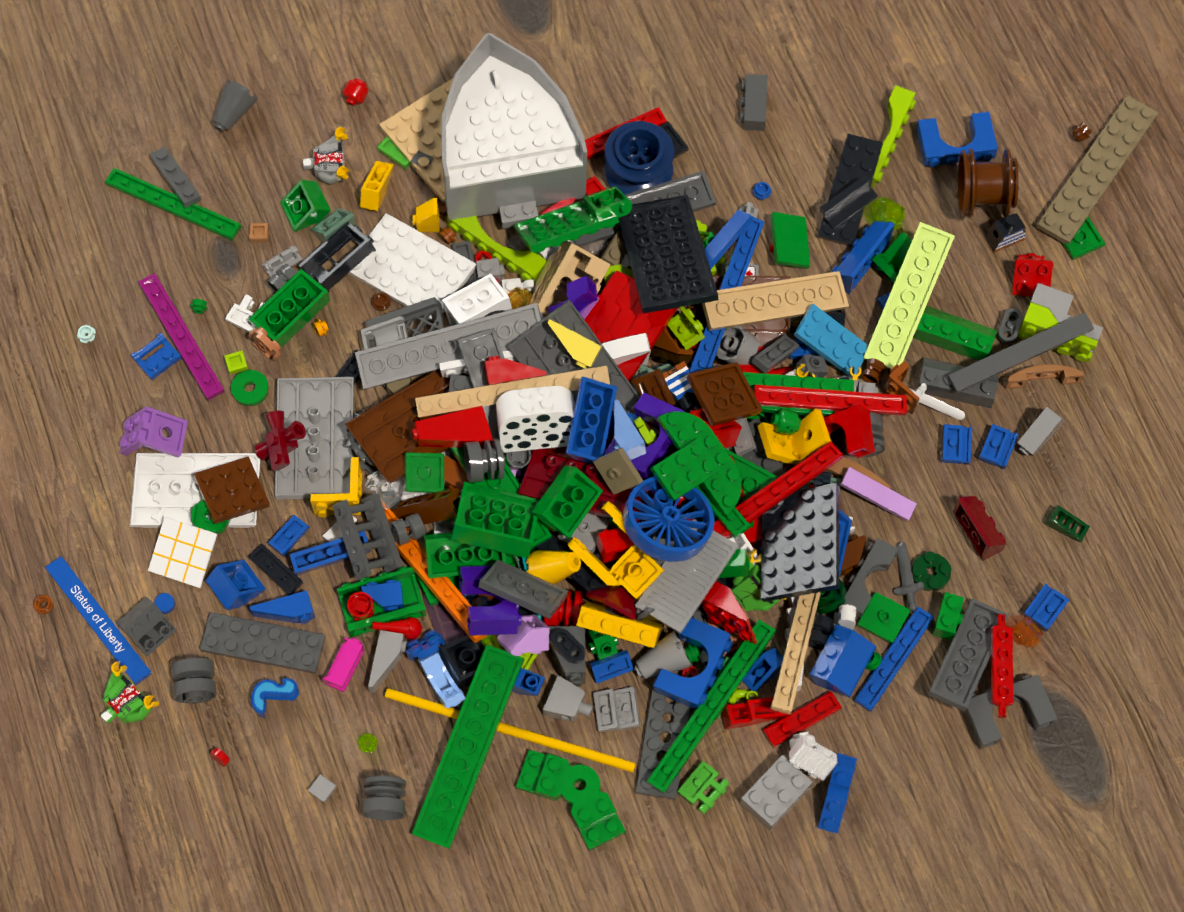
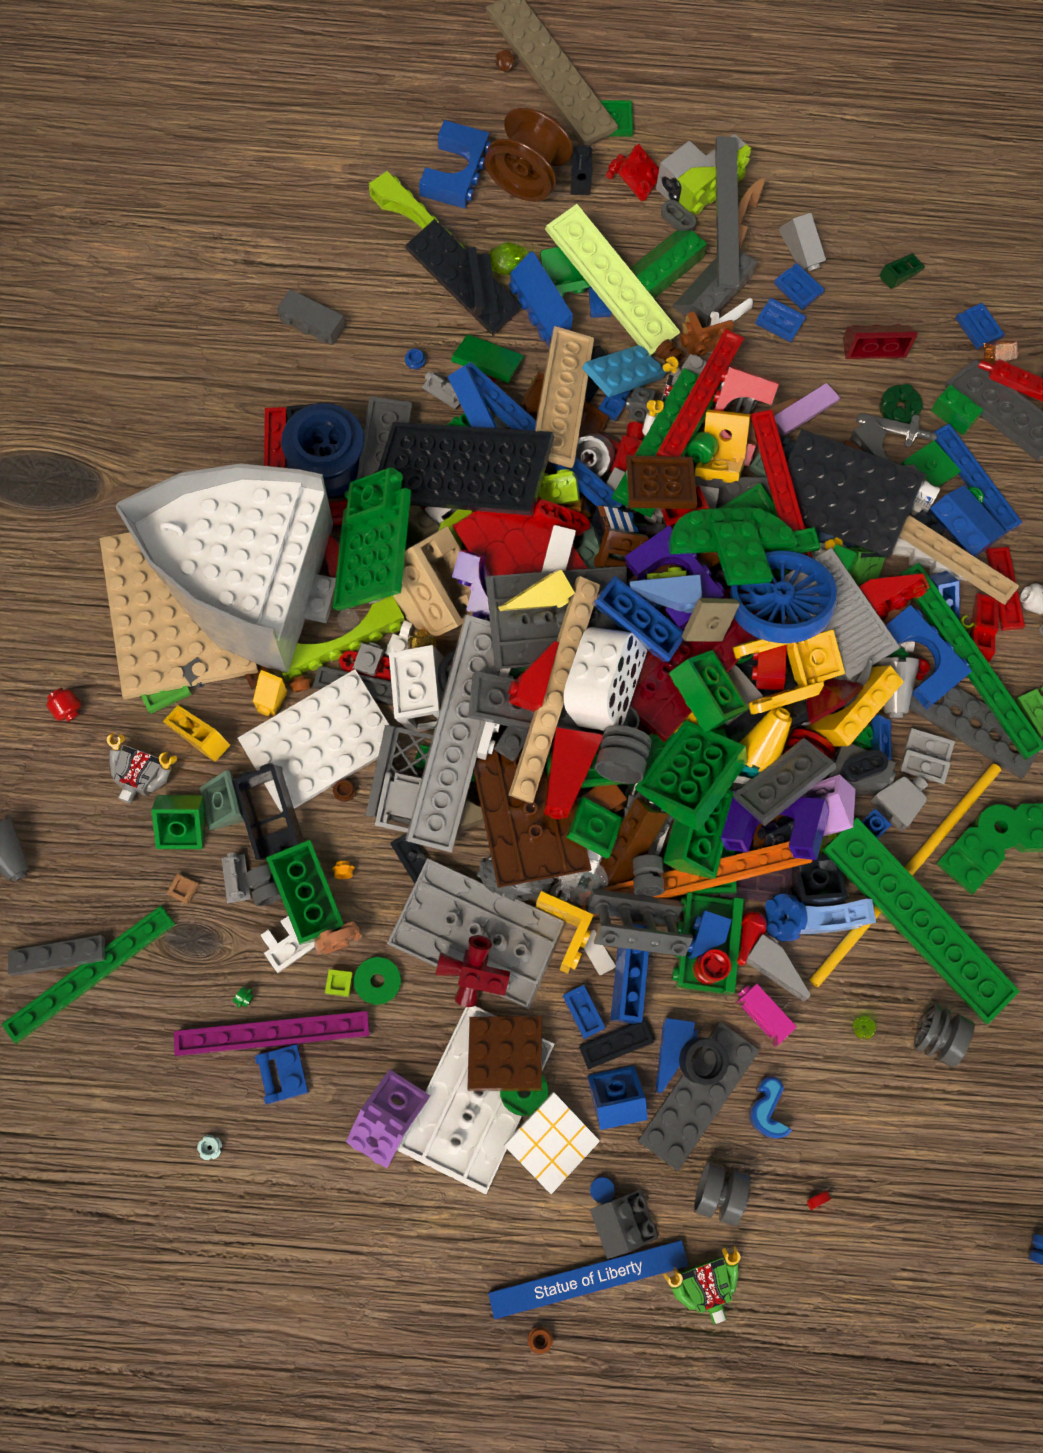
camera: 70 degrees left, 5 degrees up
(270, 627) = (720, 1066): none -> black tyre
(322, 788) = (897, 1099): light grey tile -> none
(659, 323) = (547, 513): none -> red beam
(775, 353) = (616, 425): dark grey plate -> none

